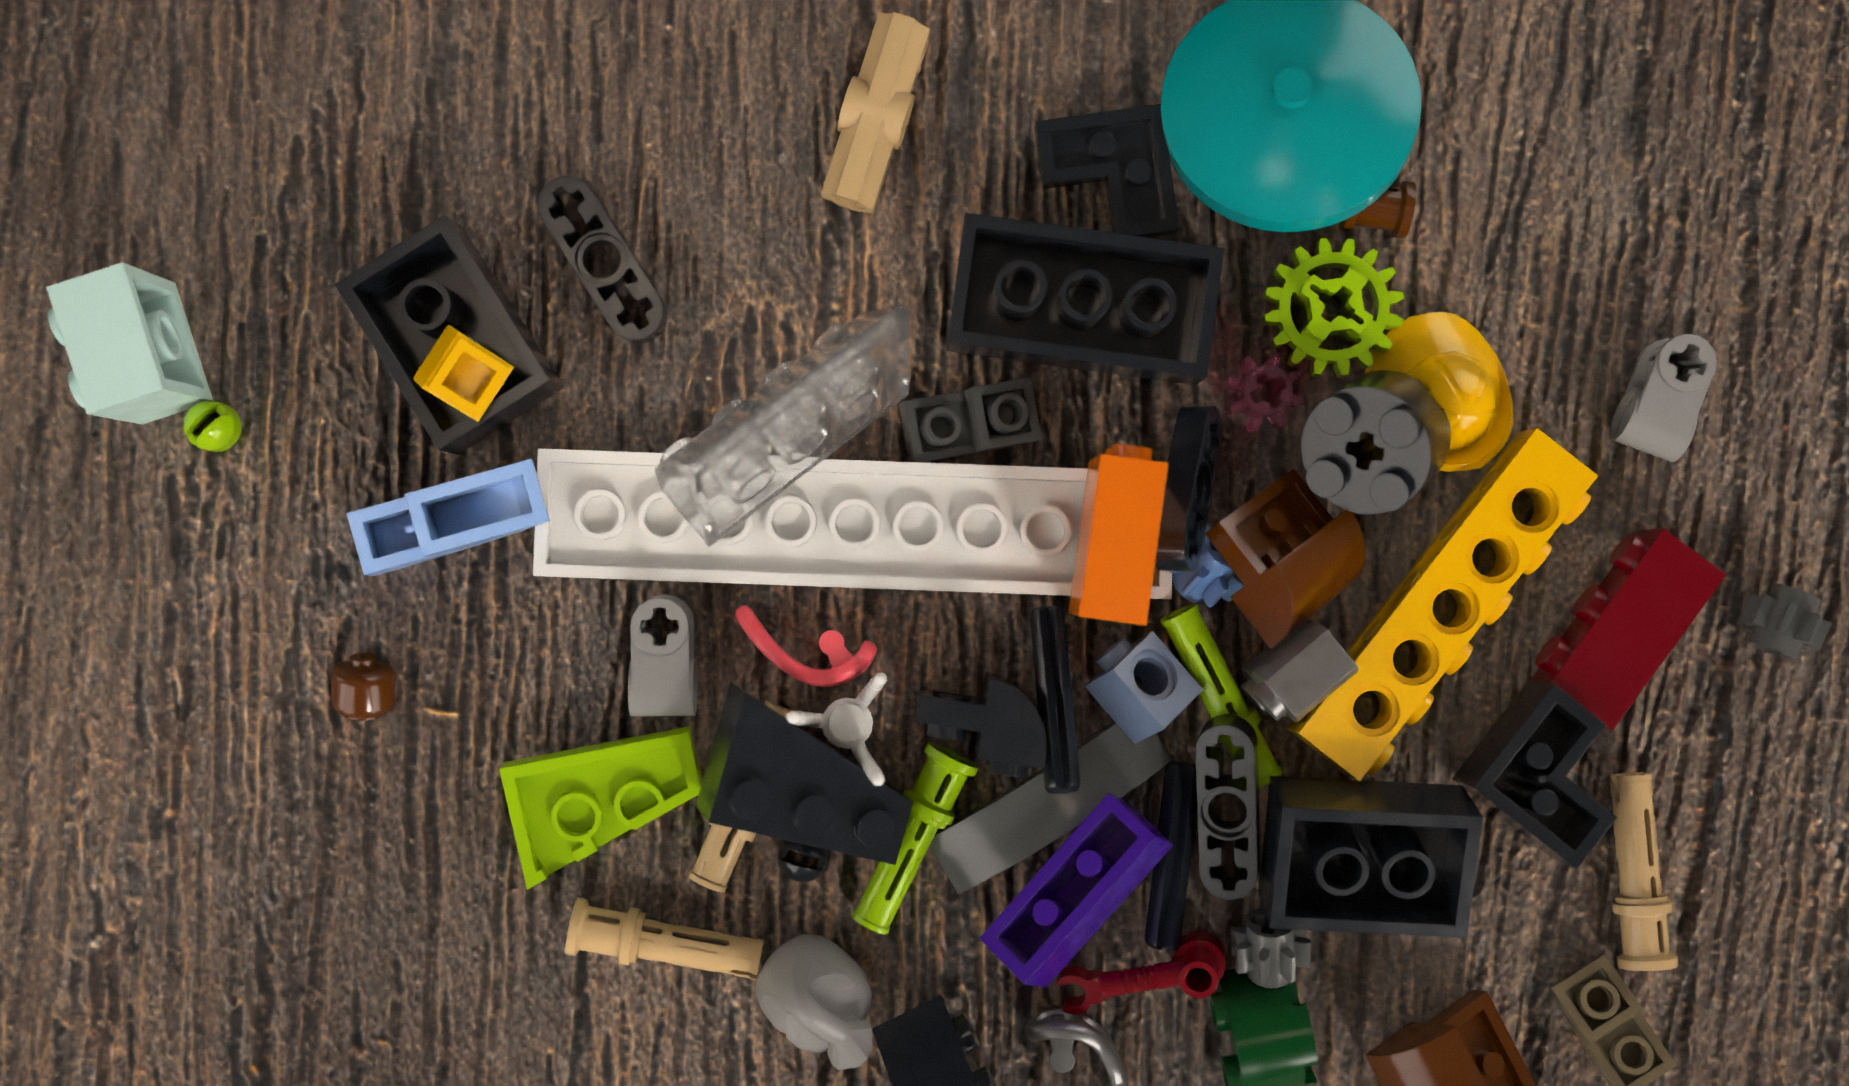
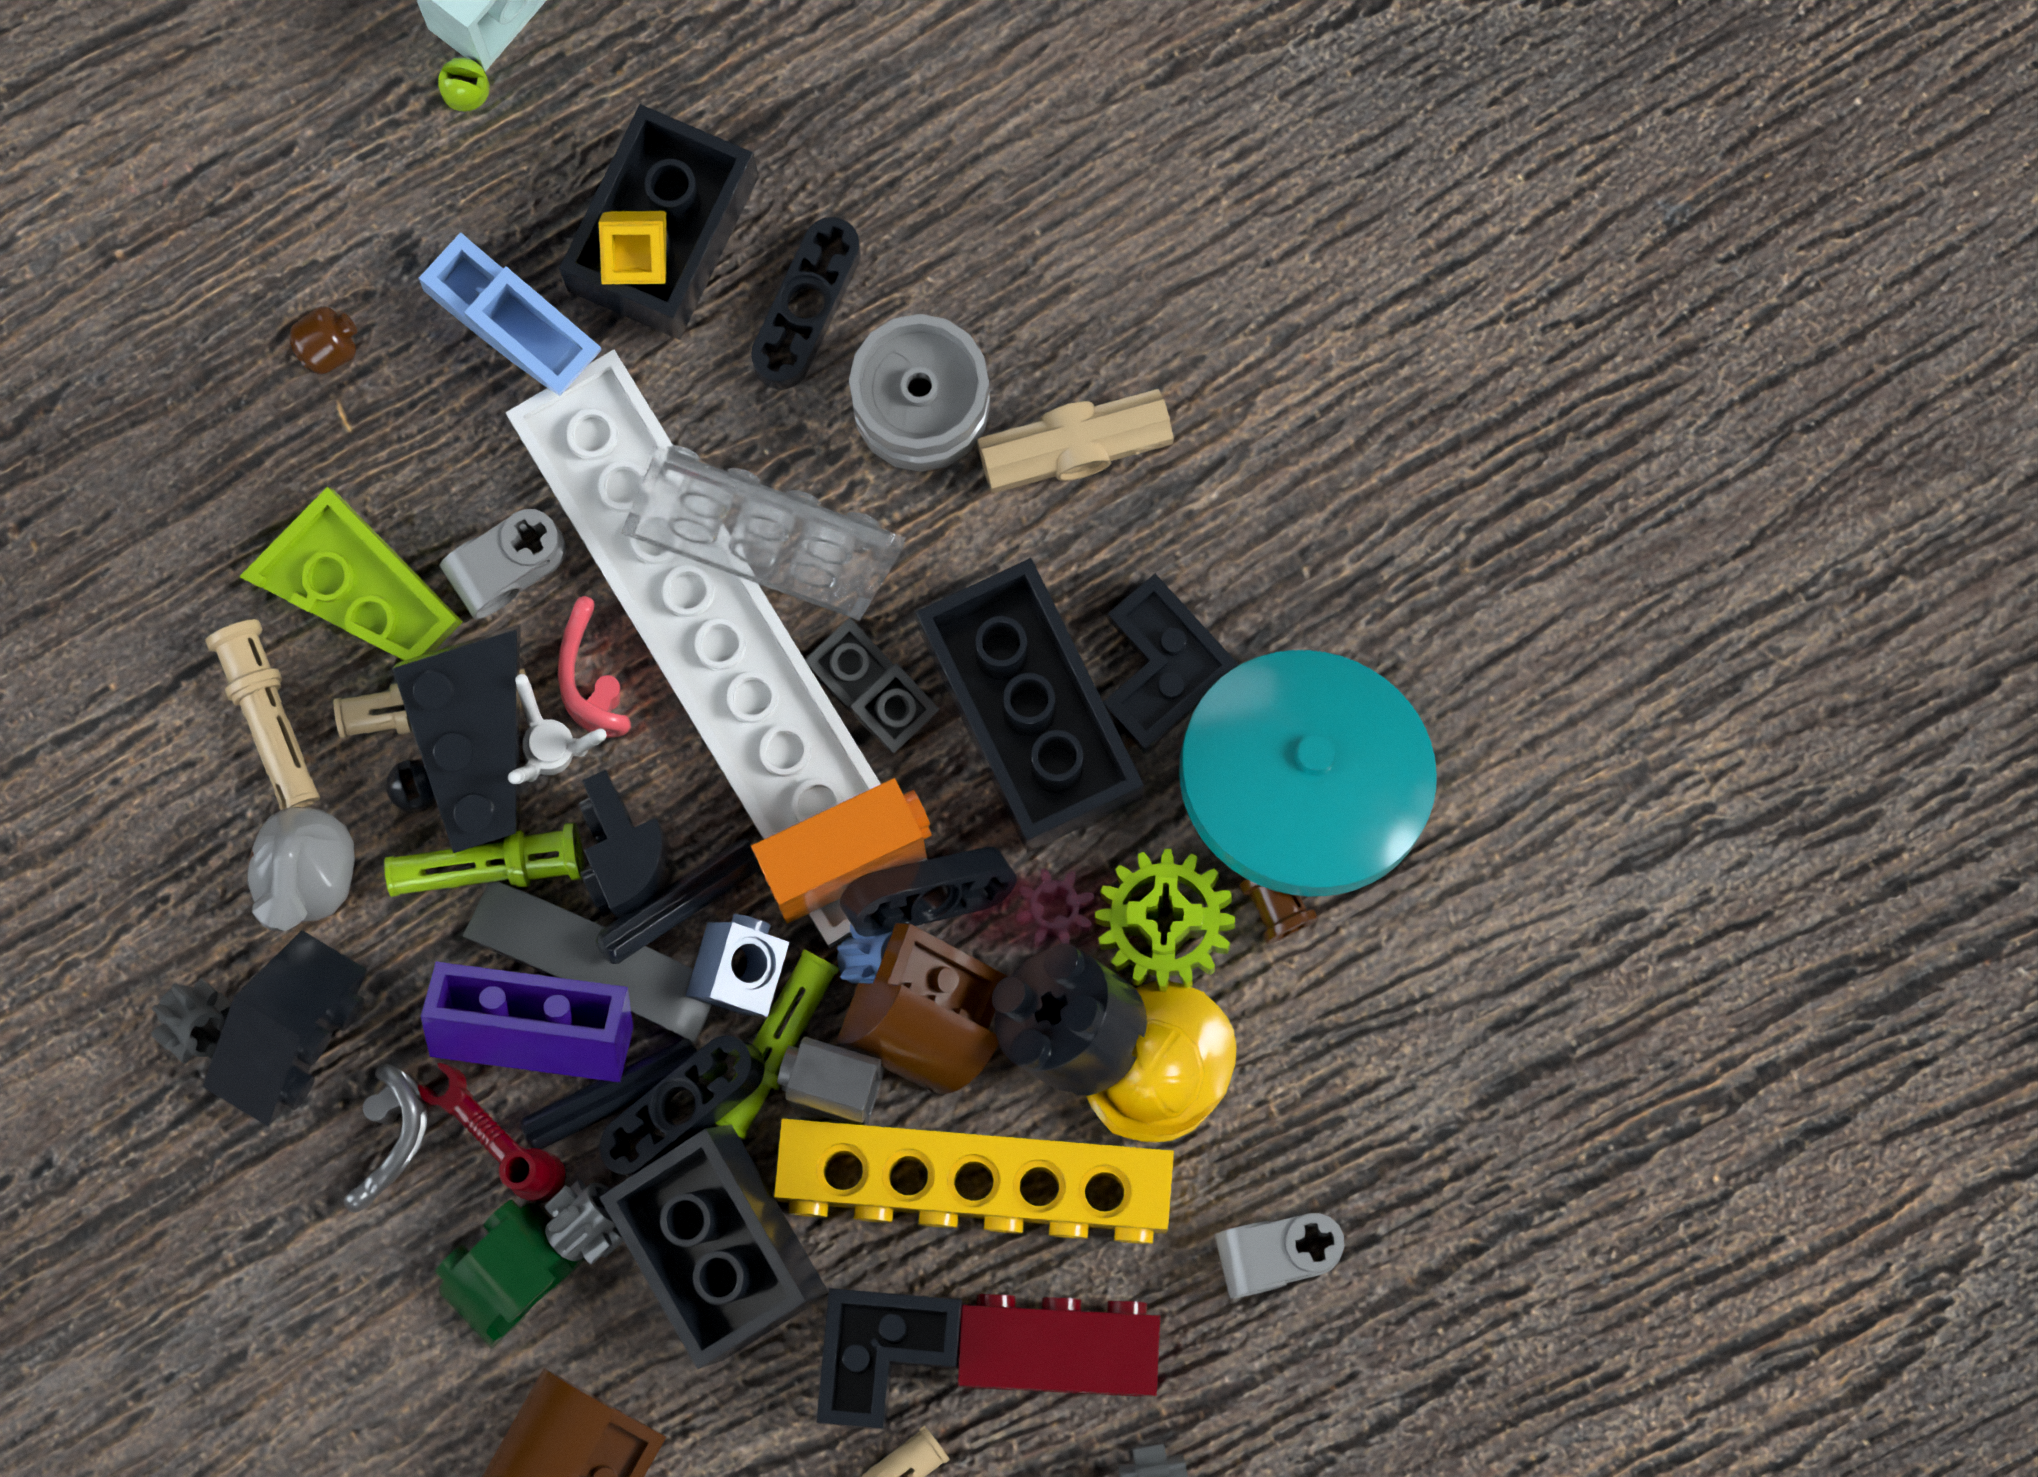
camera: 60 degrees right, 10 degrees down
(740, 175) = (921, 356): none -> light grey wheel

